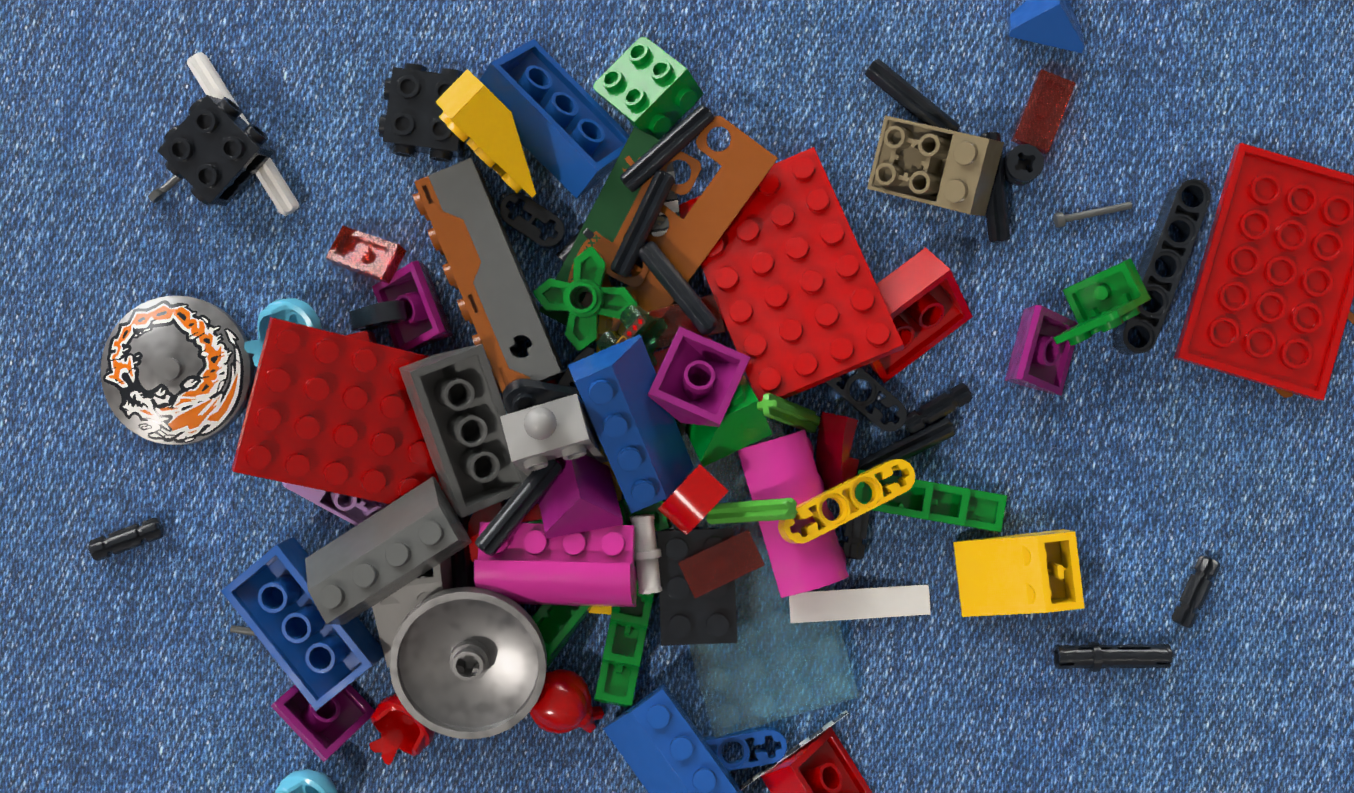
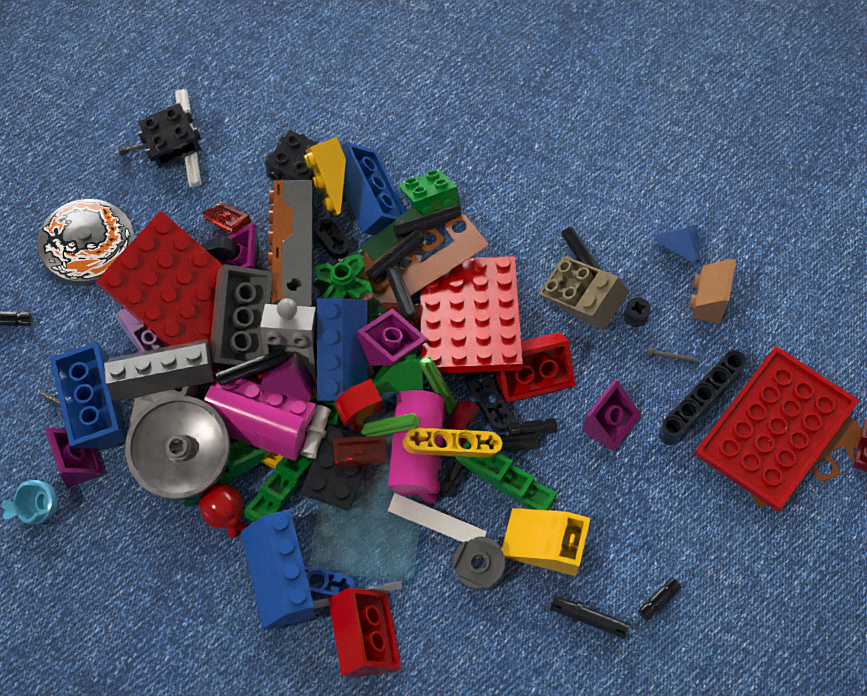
camera: 20 degrees right, 25 degrees down
(398, 730) = (115, 481): red hat -> none
(928, 626) = (466, 570): none -> dark grey plate
(997, 207) = (614, 328): black axle -> none
(1043, 111) = (661, 287): clear red plate -> none
(1104, 301) = (656, 397): green bracket -> none
(1125, 89) = (712, 291): none -> medium nougat slope

